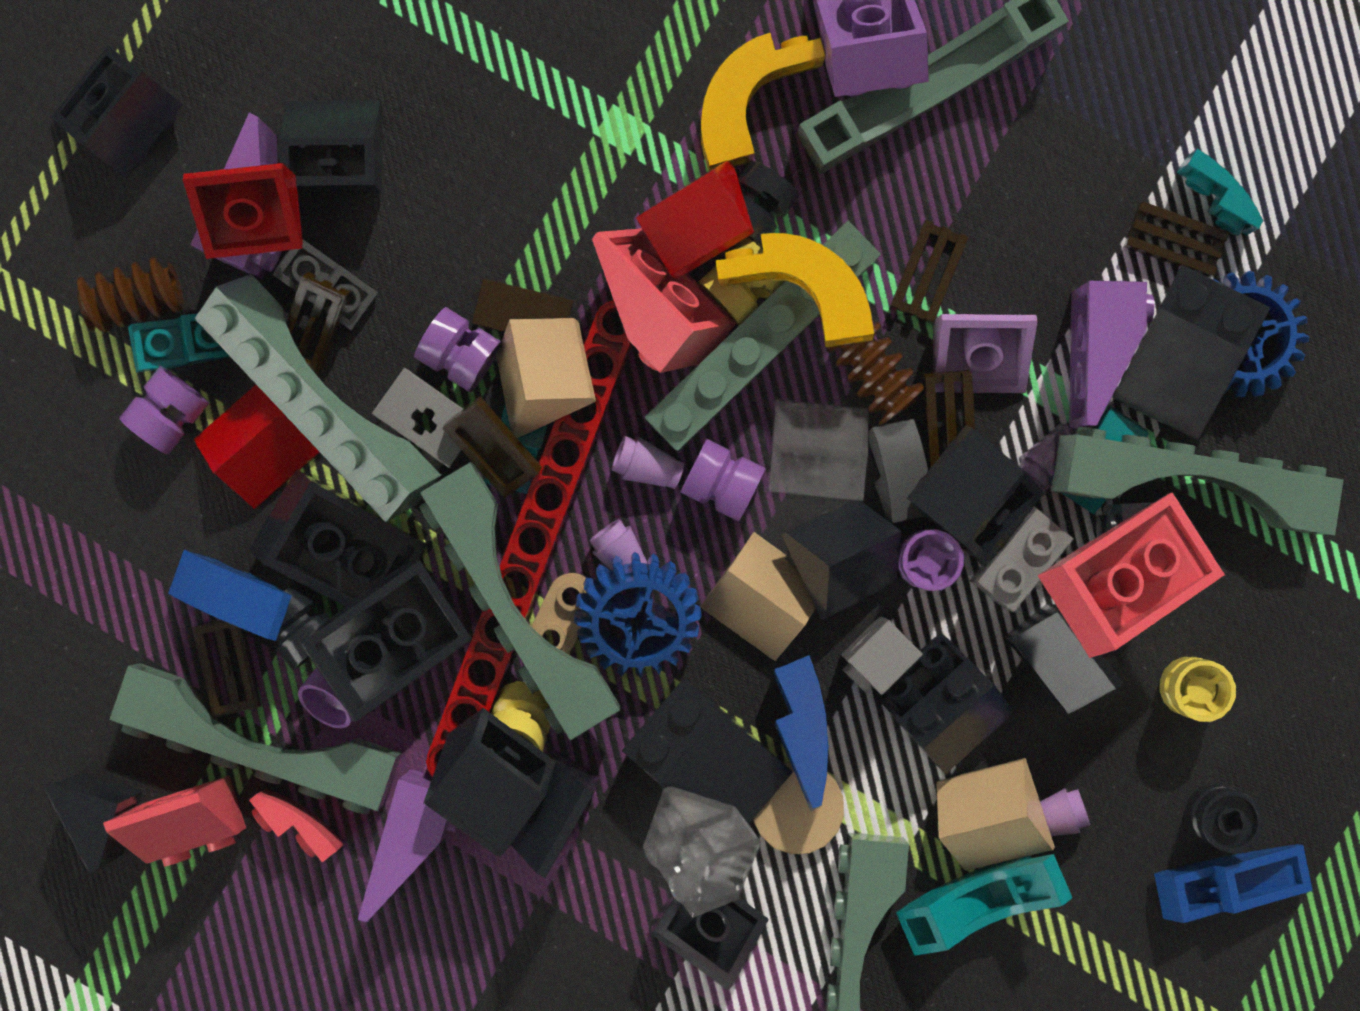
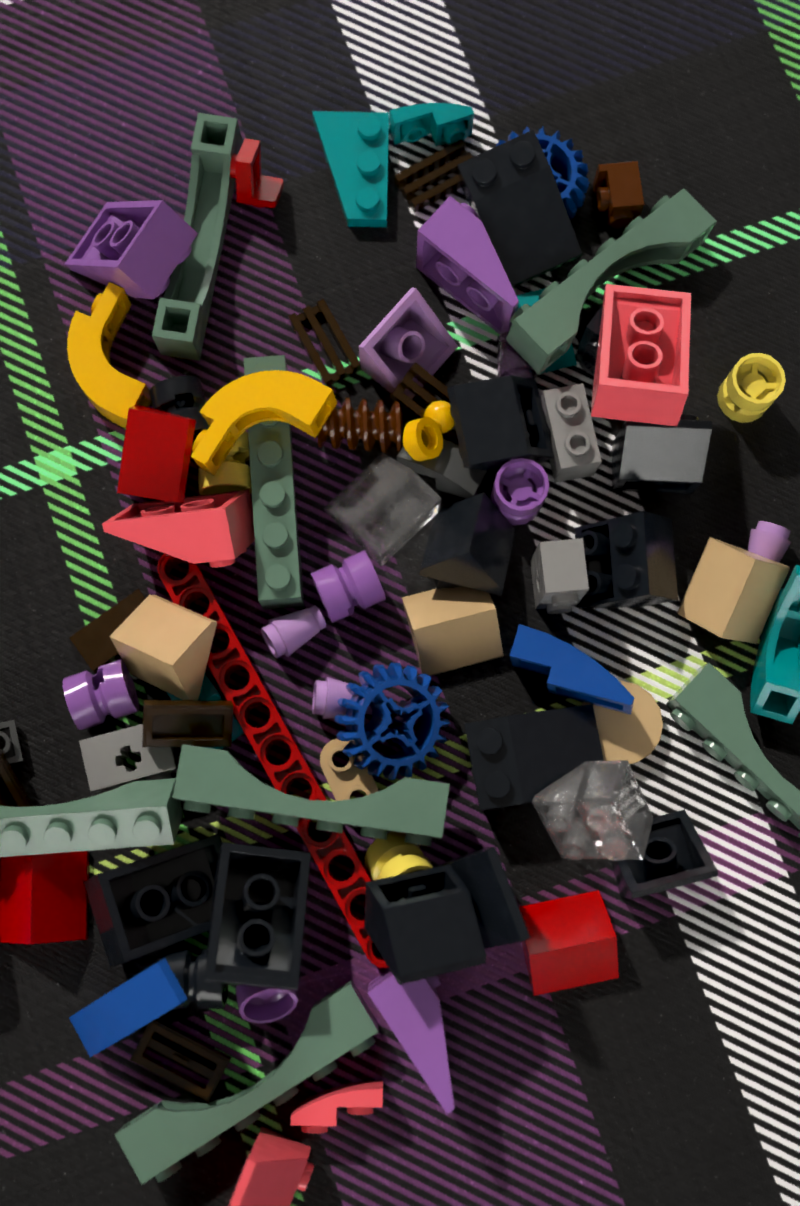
camera: 50 degrees left, 10 degrees down
(577, 907) = (569, 943): none -> red slope
(907, 439) = (424, 435): none -> yellow plate
(1023, 82) = (250, 184): none -> red bracket
(1131, 153) = (358, 159): none -> teal wing
(1293, 423) = (619, 192): none -> reddish brown brick

